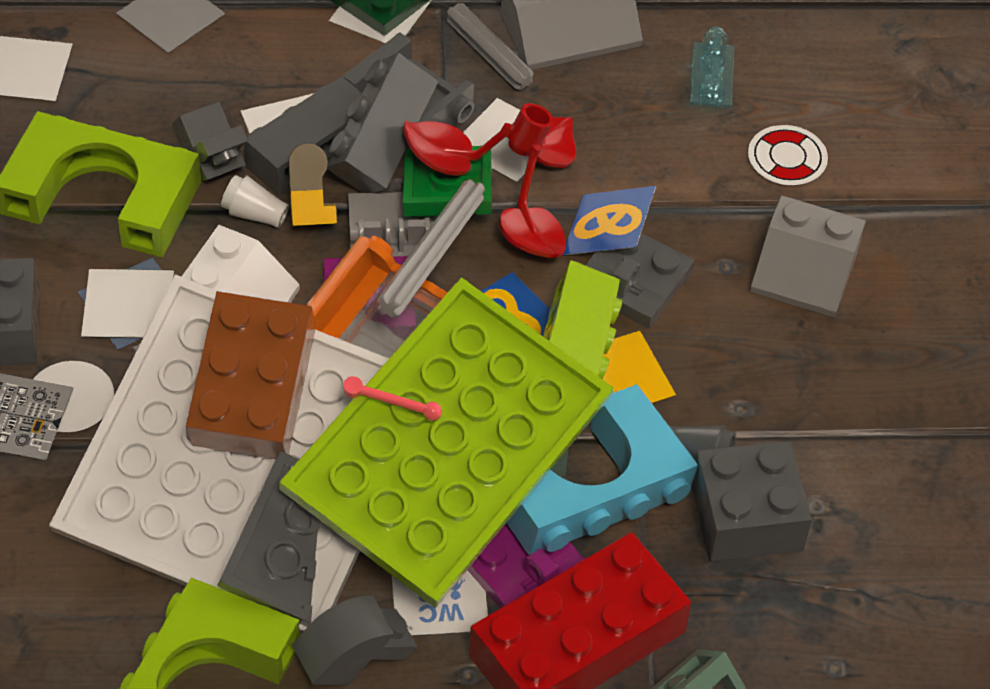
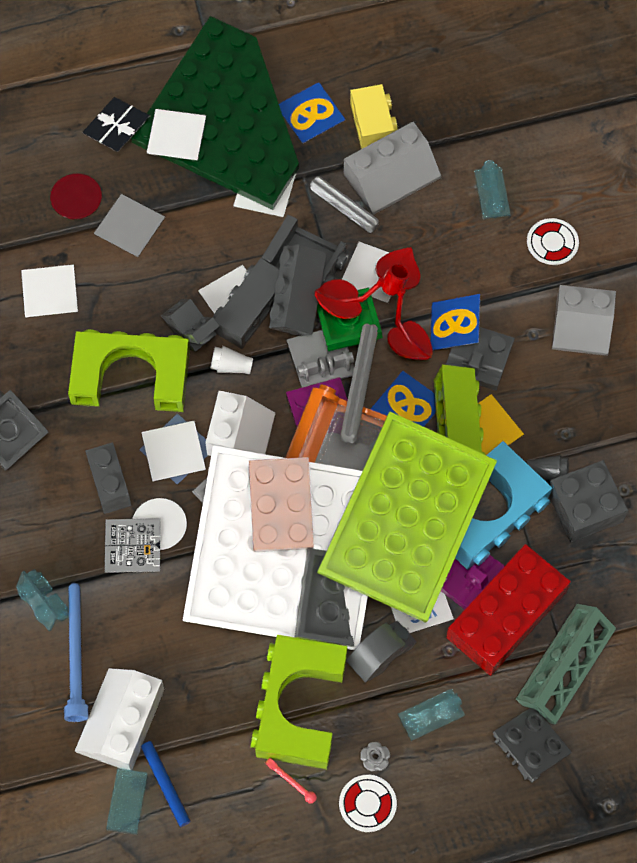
camera: 10 degrees left, 15 degrees up
(306, 169) = (261, 342): leg -> none
(354, 388) = (345, 501): coral hinge -> none

